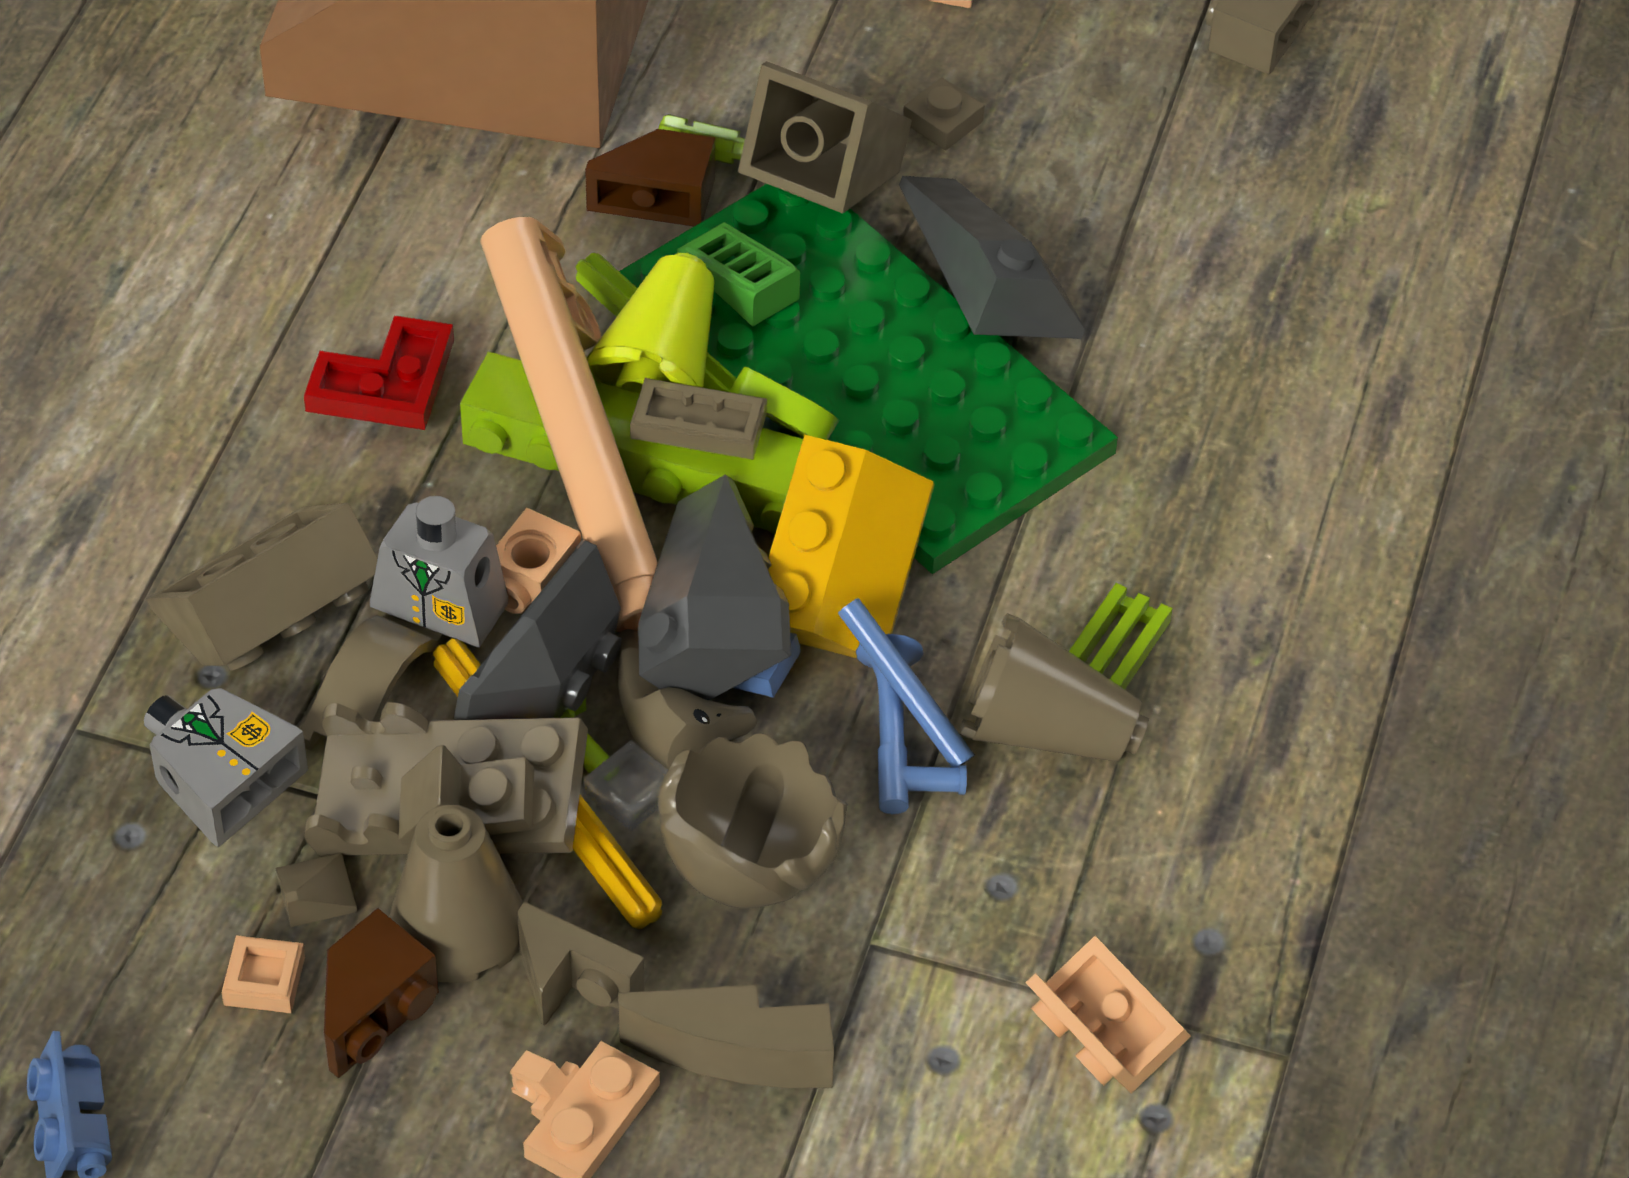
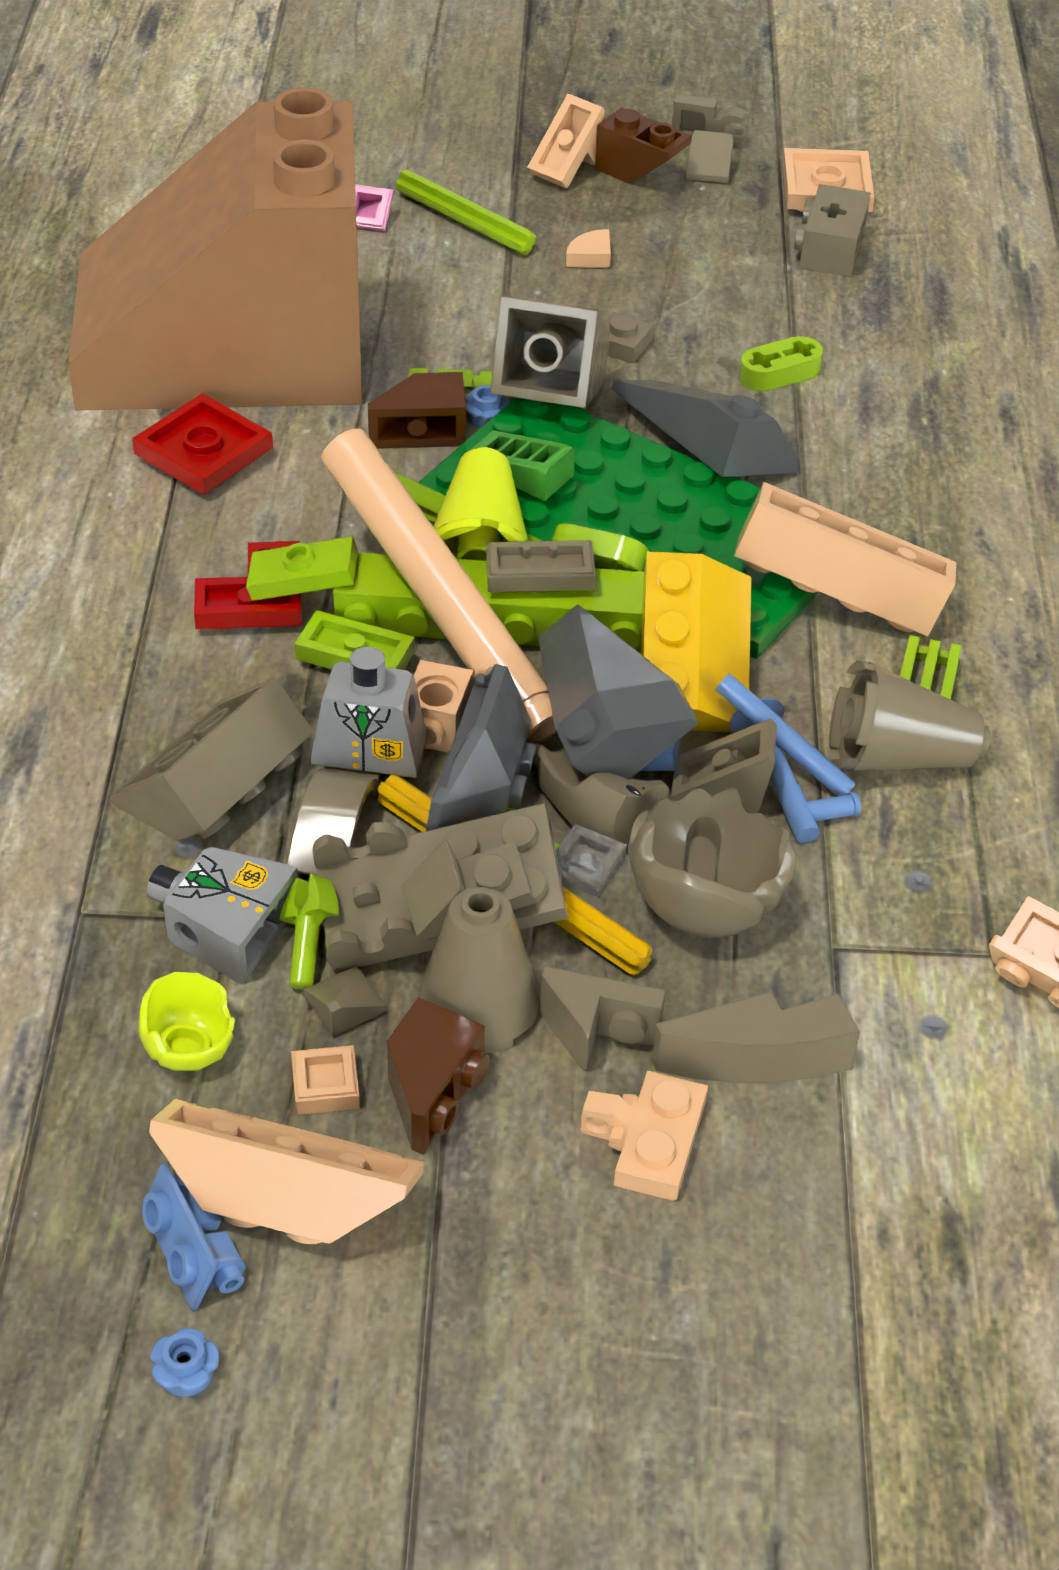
camera: 15 degrees left, 5 degrees down
(133, 879) = (185, 1021): none -> neon yellow hair
(171, 1062) = (279, 1173): none -> light nougat wedge
(304, 775) = (306, 908): none -> lime bar
(390, 172) = (202, 443): none -> red plate
(435, 365) = (302, 568): none -> lime plate
(470, 472) = (334, 638): none -> lime plate
(731, 184) = (483, 405): none -> medium blue plate
(826, 706) = (735, 761): none -> dark tan slope
(1062, 476) = (845, 560): none -> light nougat brick
(1121, 185) = (780, 363): none -> lime beam

